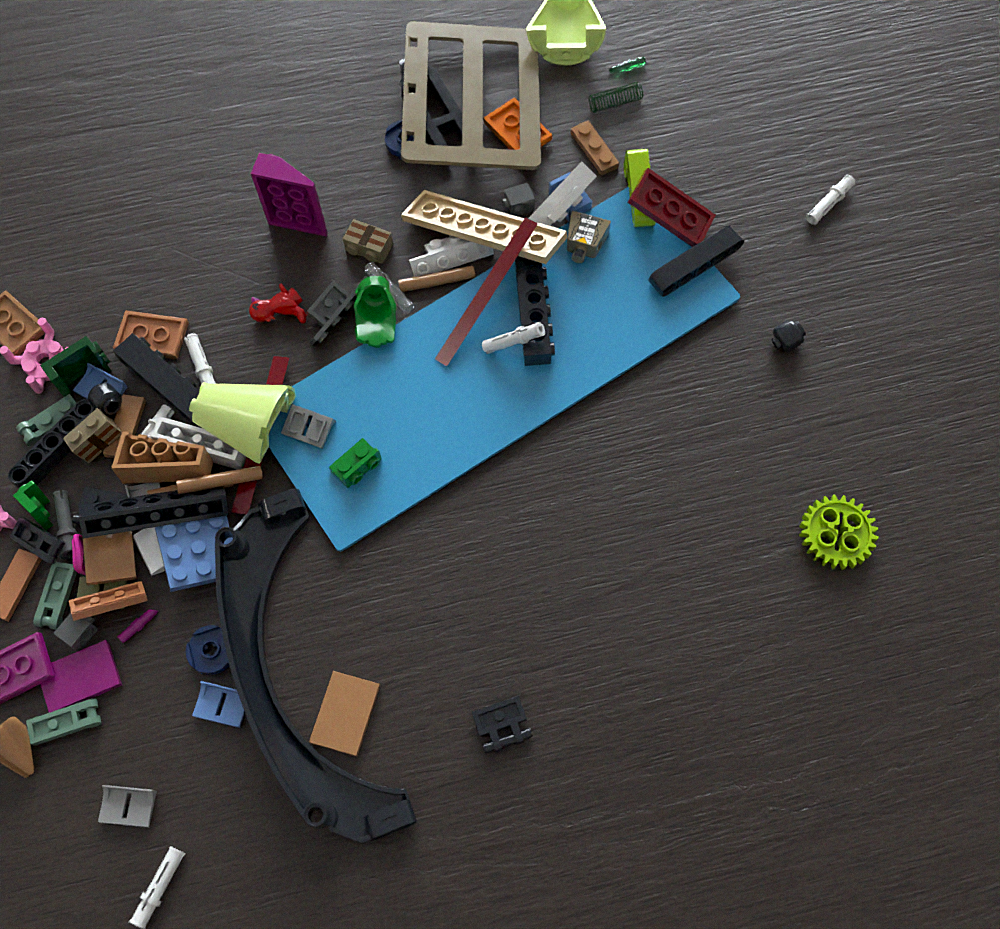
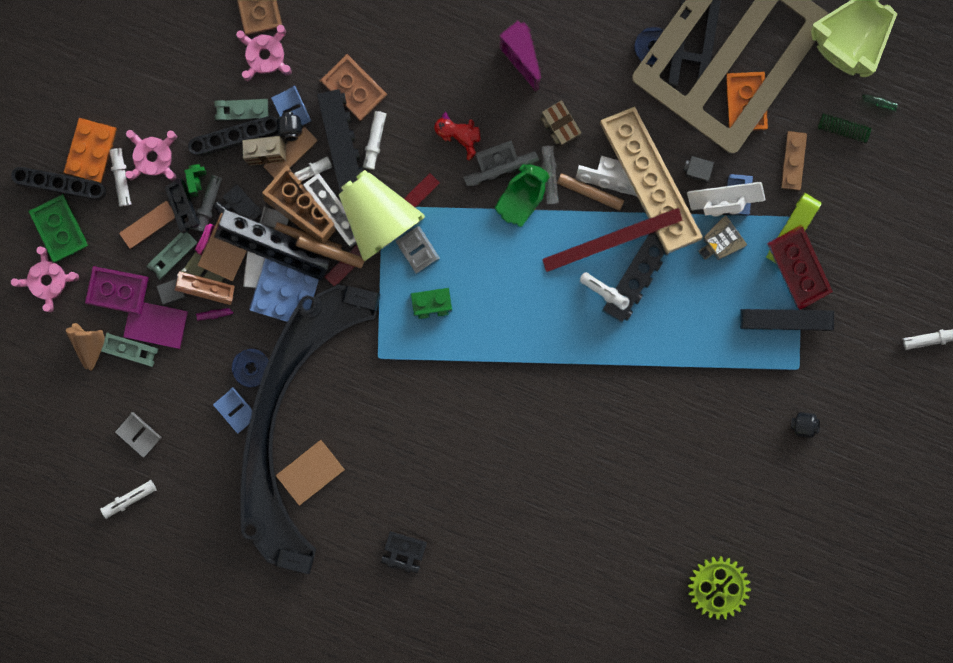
camera: 35 degrees right, 20 degrees up
(72, 365) = (283, 81): dark green panel -> none

